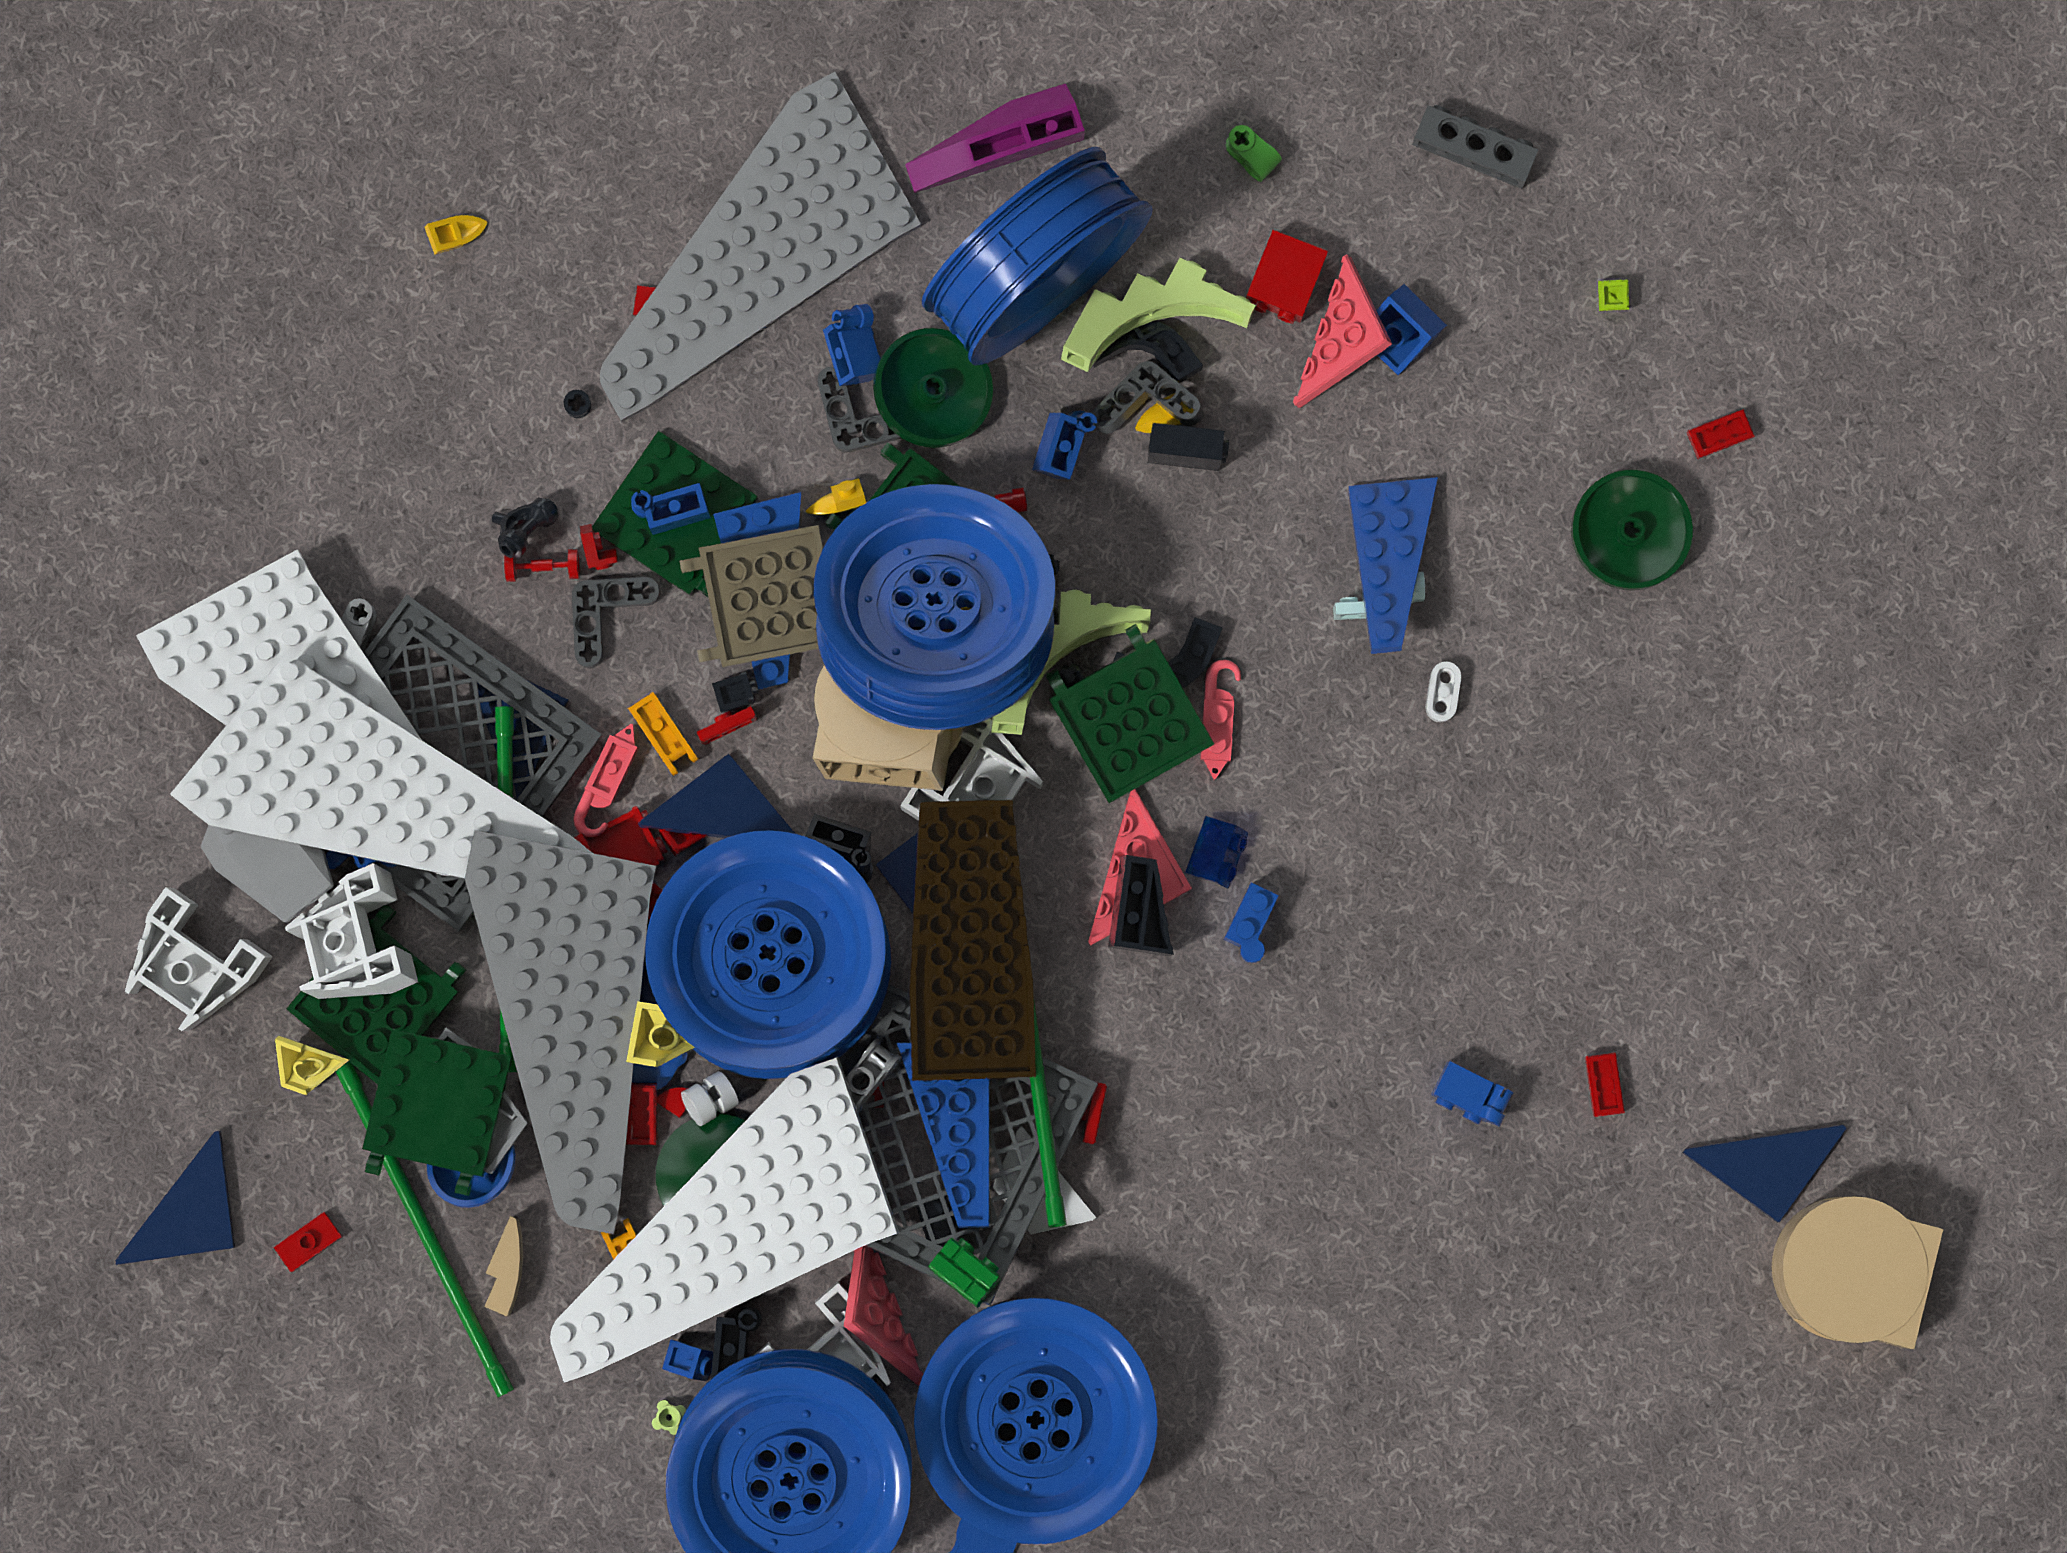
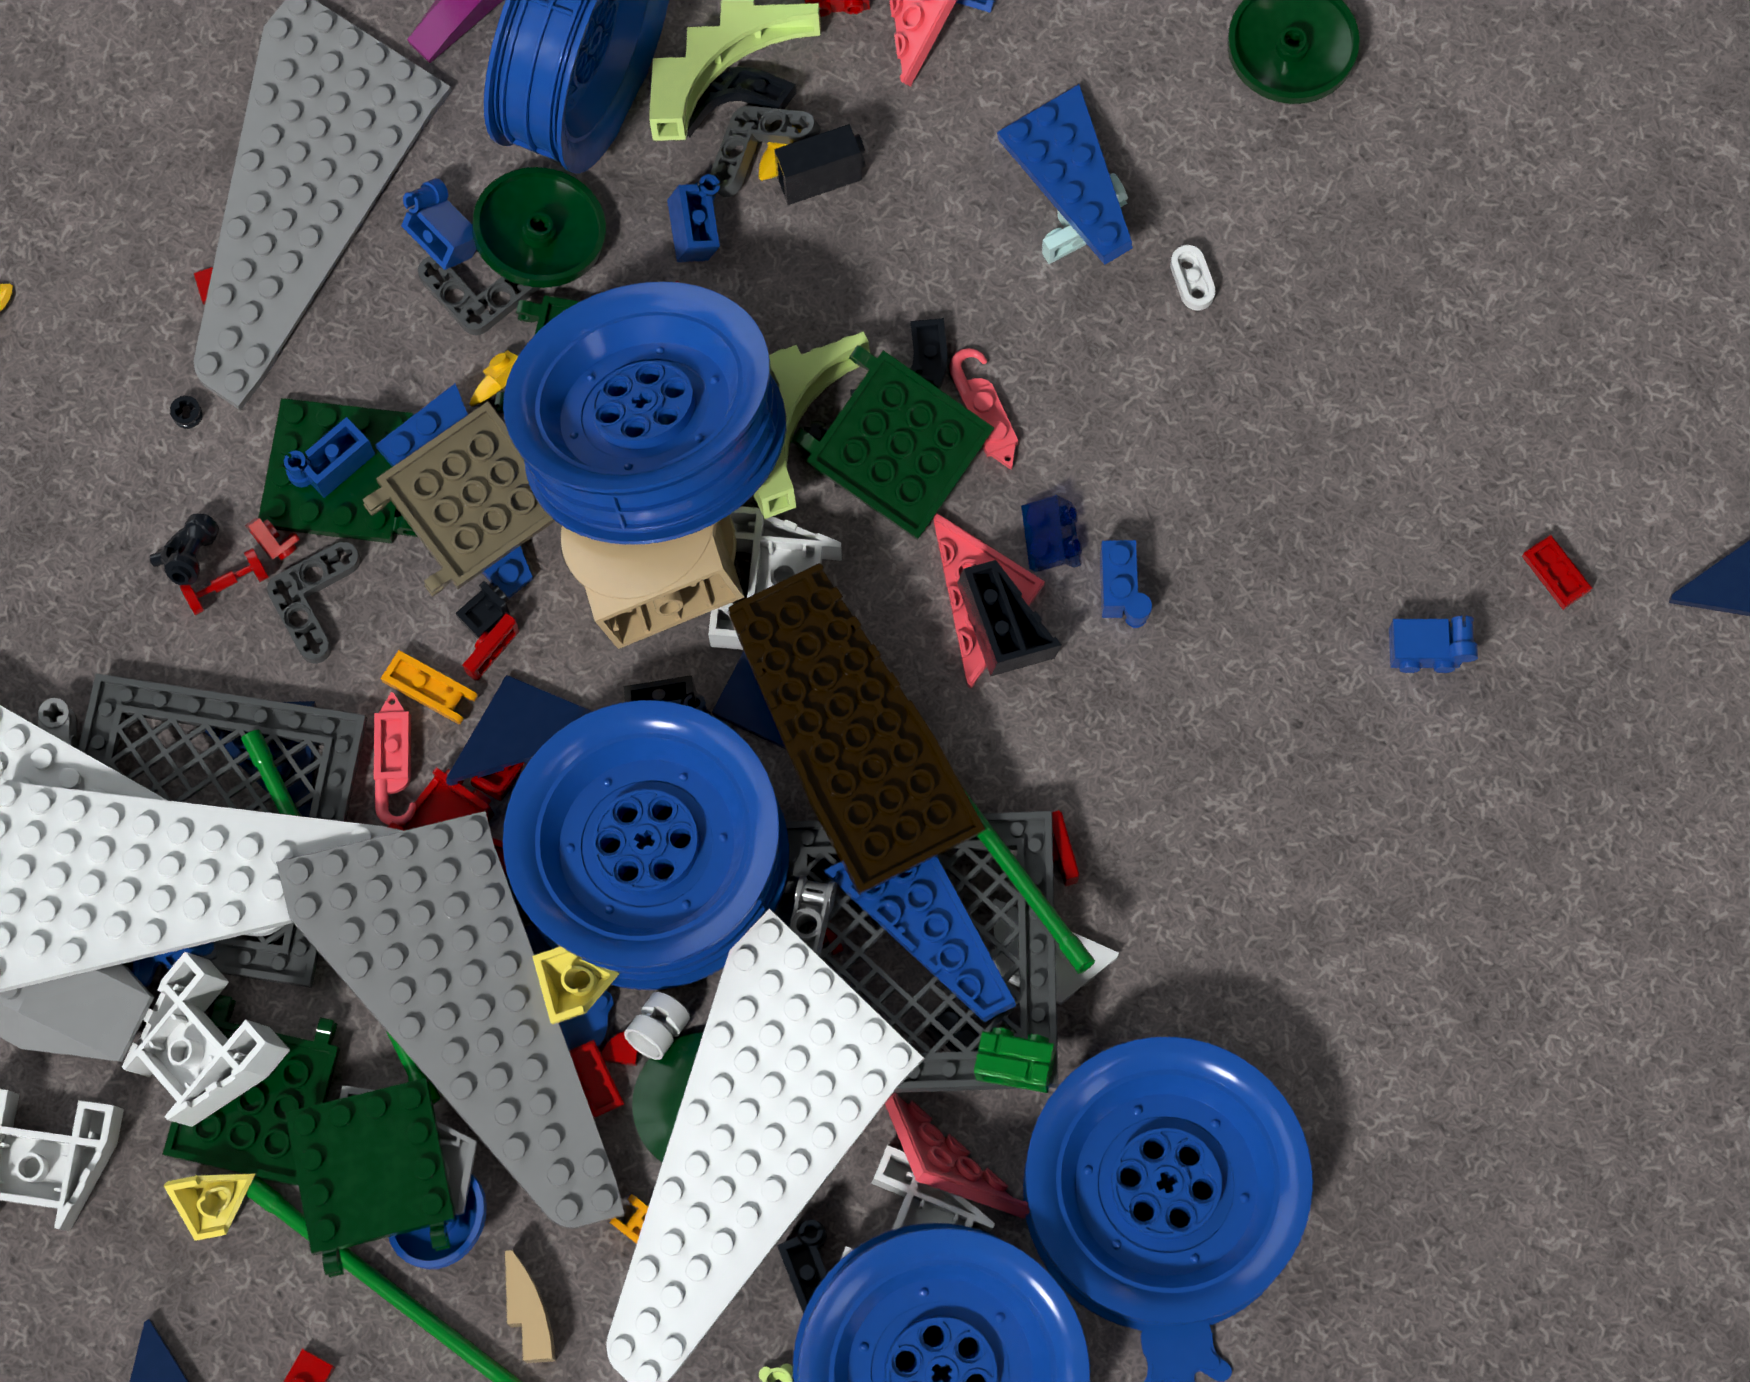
camera: 20 degrees left, 10 degrees down
(688, 1361) = (770, 1311): blue bracket -> none

